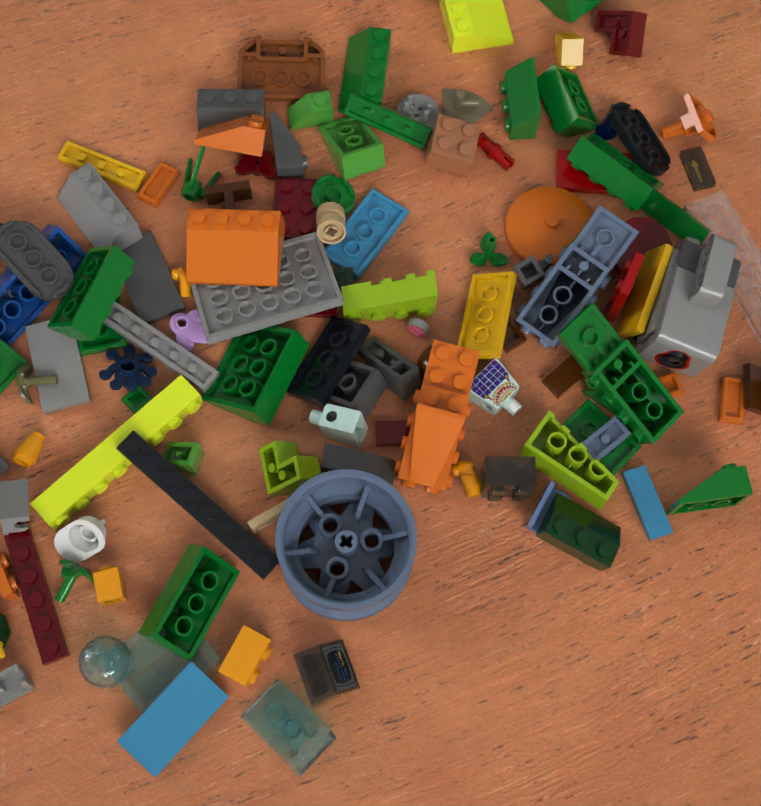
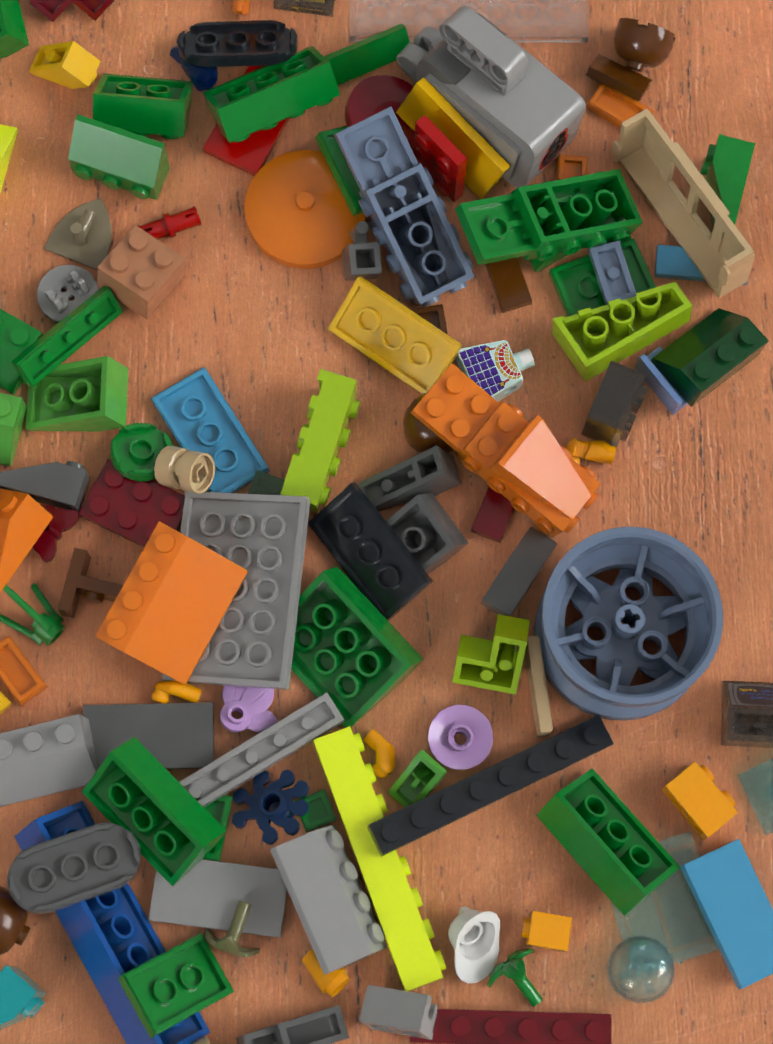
camera: 65 degrees left, 5 degrees up
(74, 426) = (329, 898): none -> light grey slope
(193, 428) = (384, 753): none -> light orange arm
(224, 460) = (461, 720): none -> lavender dish
(340, 424) = (469, 561): light aqua torso -> none
(418, 328) = (372, 425): tile -> none
(488, 244) = (307, 293): green plant -> none
(682, 464) = (649, 160): none -> tan piece

